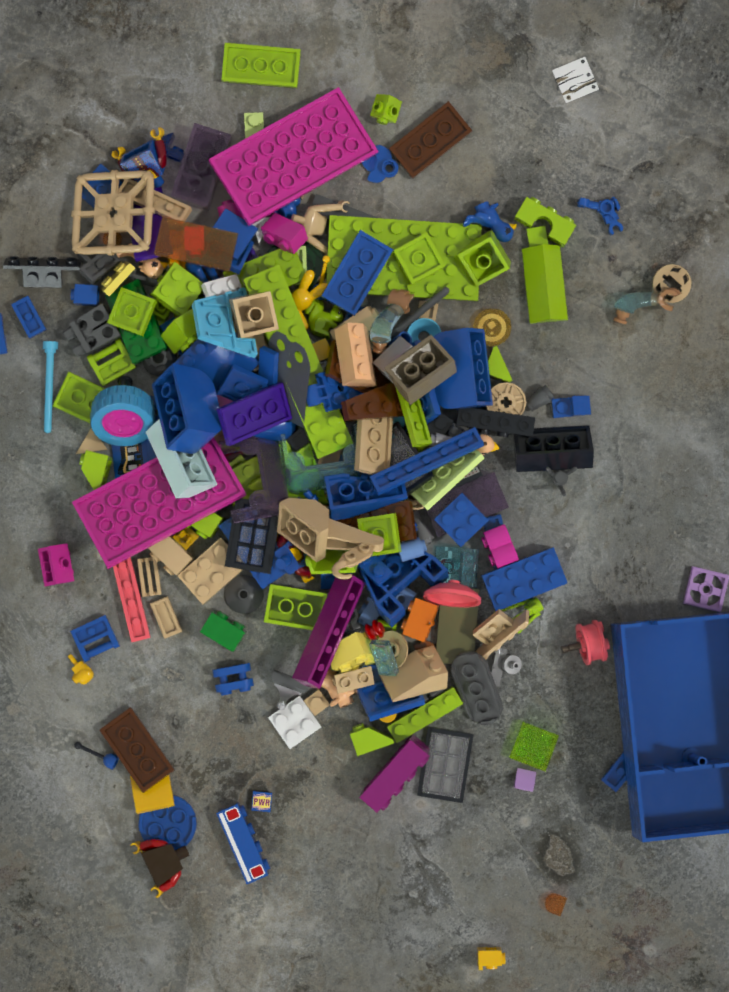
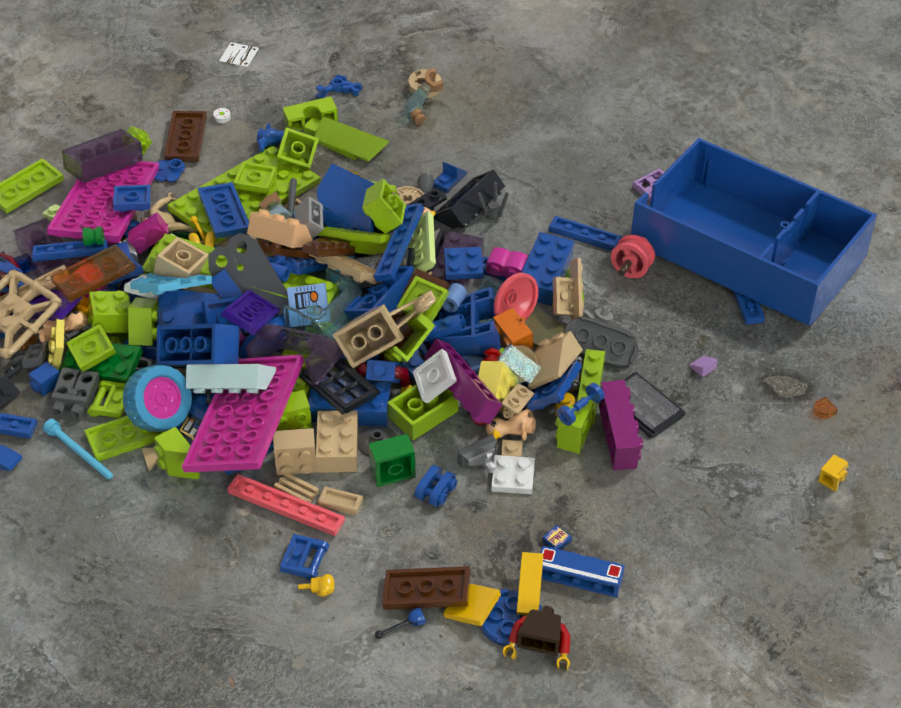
camera: 50 degrees left, 40 degrees down
(56, 564) = (217, 535): dark pink brick -> none
(197, 821) = (530, 582): none -> yellow tile
(209, 195) = (65, 250): none -> blue tile
(229, 208) = (93, 236): none -> green wheel
(303, 187) = (132, 198): none -> blue plate
(307, 441) = (307, 296): none -> light blue tile
(314, 606) = (434, 376): none -> white plate
(333, 109) = (102, 155): none -> clear purple brick
(375, 742) = (567, 415): none -> blue wheel
(421, 369) = (331, 201): dark tan slope -> none
(449, 419) = (384, 207): none -> lime brick
(483, 144) = (222, 115): none -> white tile
(534, 746) = (681, 342): clear neon green plate -> none
(598, 573) = (584, 233): none -> blue tile

